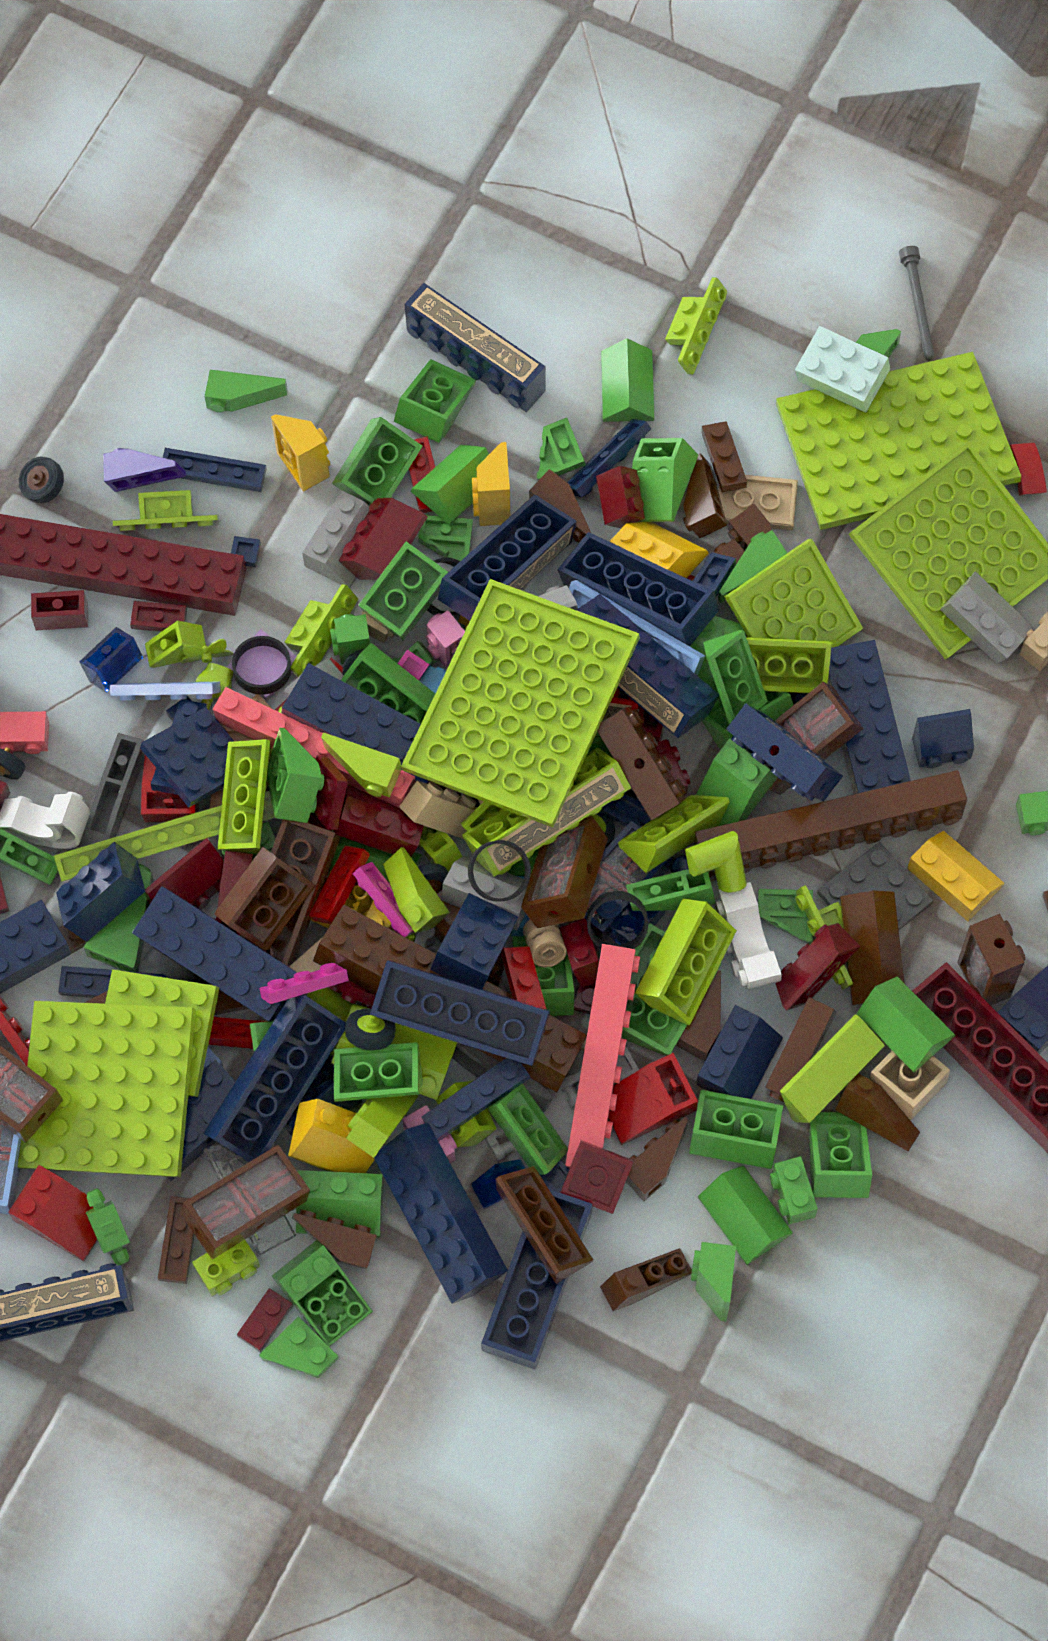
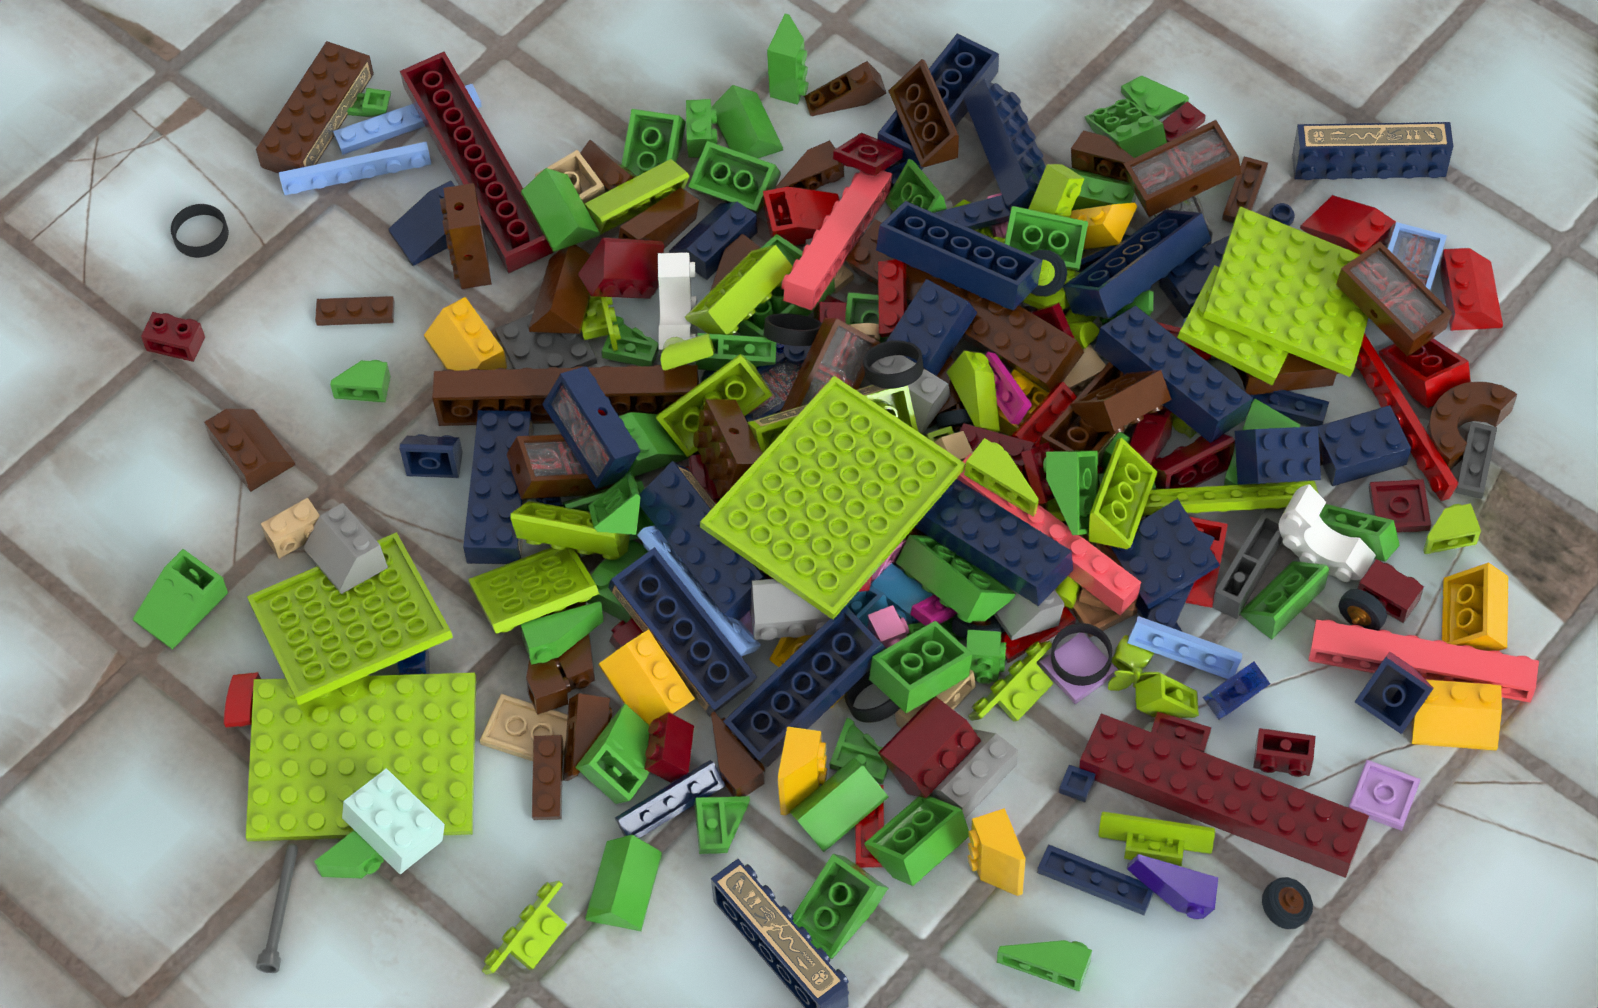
camera: 165 degrees left, 10 degrees down
(77, 766) = (1285, 597): none -> bright green slope
(107, 1227) = (1307, 203): bright green piece -> none
(135, 1218) = (1282, 213): none -> dark blue plate
(303, 983) = (1097, 311): dark pink plate -> none
(486, 1184) = (956, 186): clear blue slope -> none
(715, 572) = (601, 630): dark blue plate -> none

